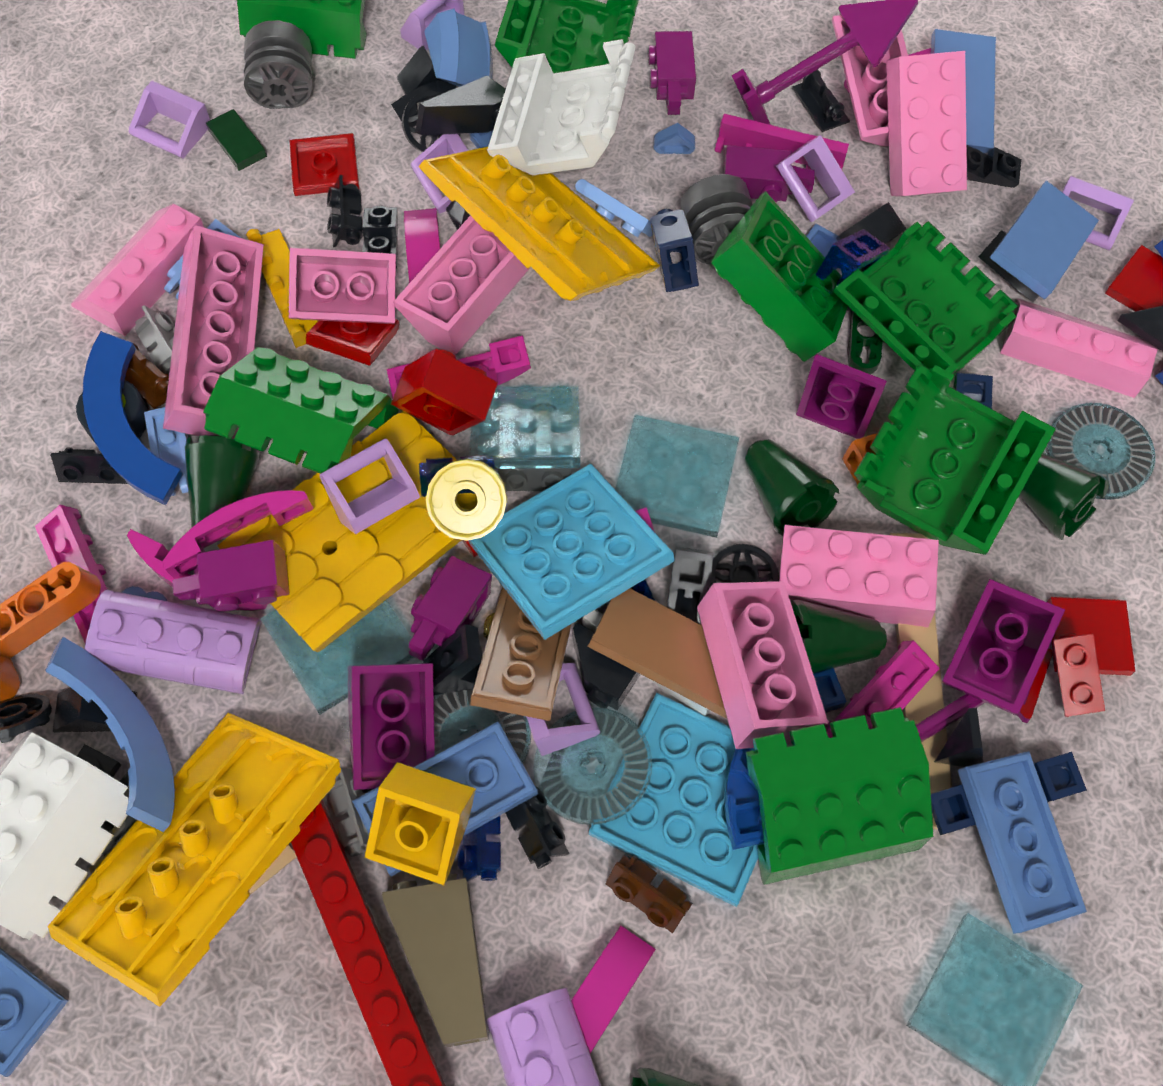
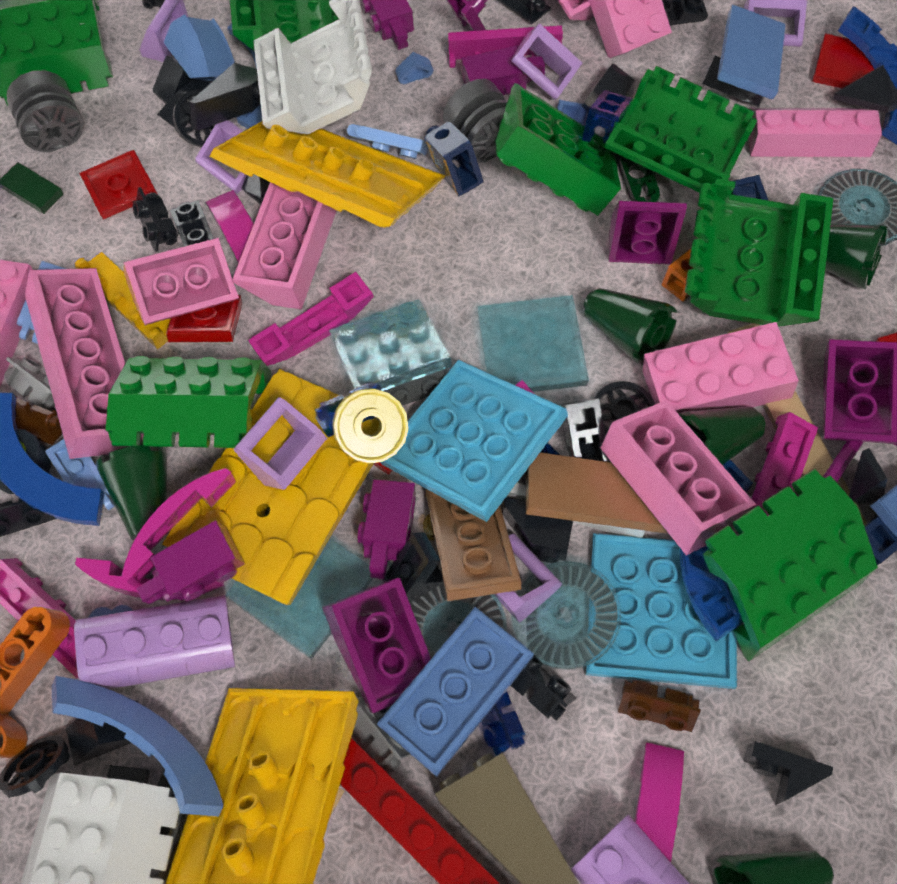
camera: 15 degrees left, 0 degrees up
(419, 822) = (446, 720): yellow slope -> none
(444, 392) = (310, 341): red brick -> none
(762, 1014) = (796, 771): none -> black slope

